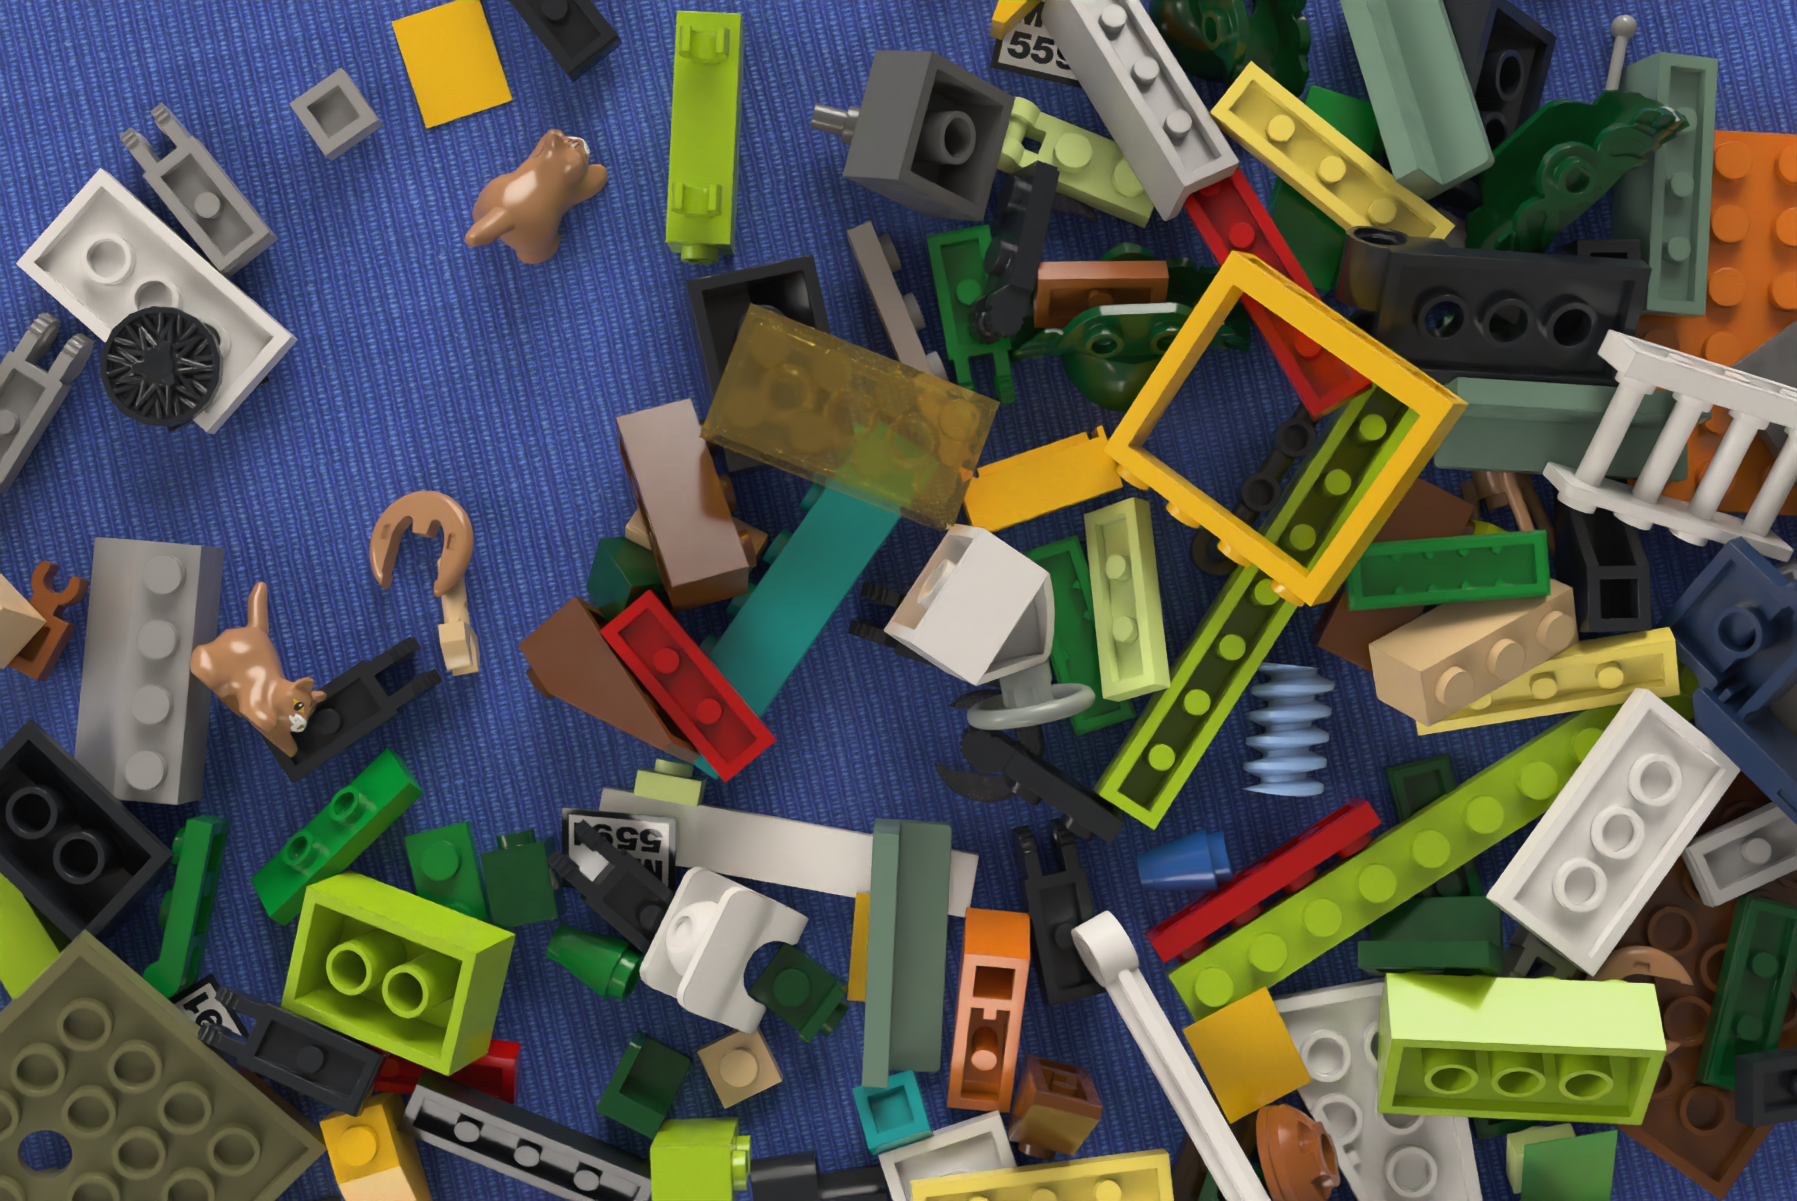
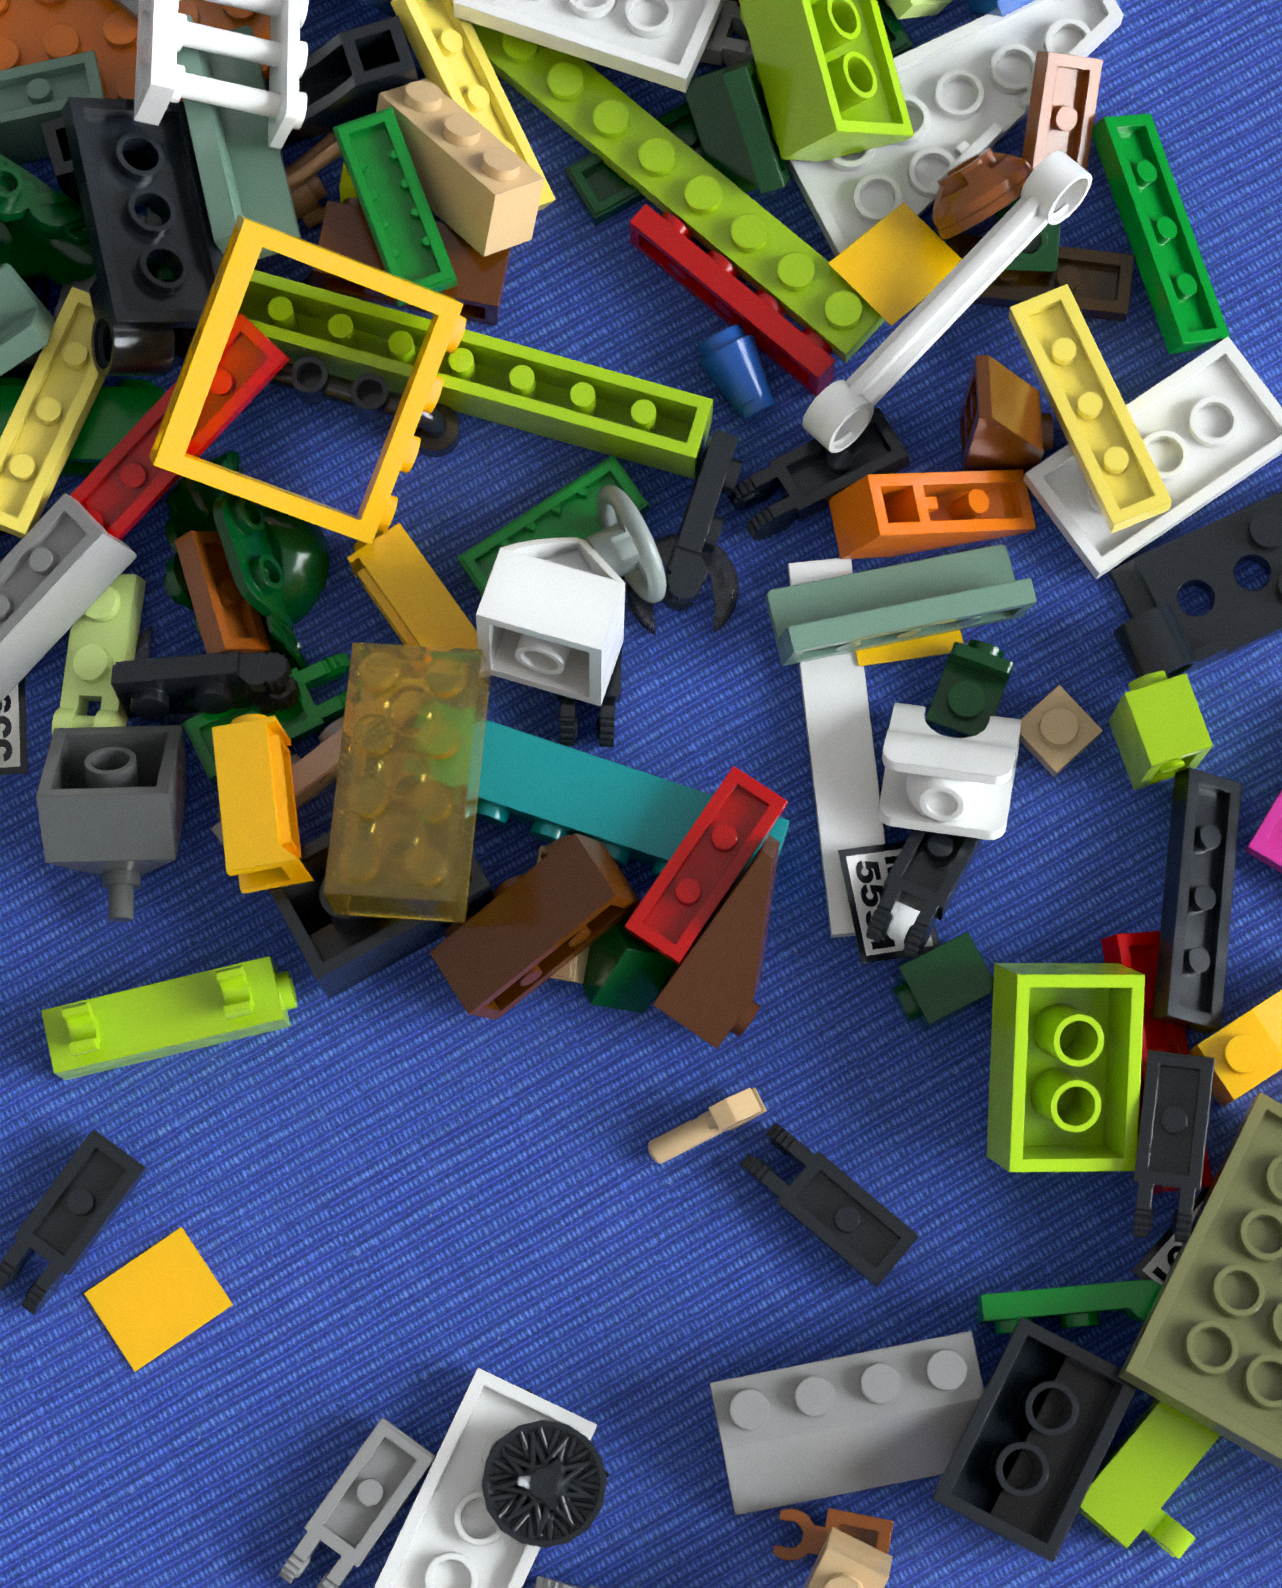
camera: 105 degrees left, 10 degrees down
(250, 680) = (826, 1307): medium nougat animal -> none
(336, 114) = (243, 1392): light grey plate -> none
(336, 835) = (958, 1179): green plate -> none
(427, 513) = (612, 1183): medium nougat head -> none
(449, 869) = (954, 1065): green plate -> none
(530, 202) = (279, 1171): medium nougat animal -> none
(599, 961) = (999, 891): green cone -> none
(644, 1084) = (1103, 814): dark green panel -> none
(671, 782) = (806, 869): yellowish green plate -> none
(875, 269) = (258, 803): none -> yellow window
(893, 1114) = (1056, 571): teal plate -> none
(1126, 600) = (505, 490): yellowish green plate -> none
(1288, 730) = (586, 312): light blue piece -> none

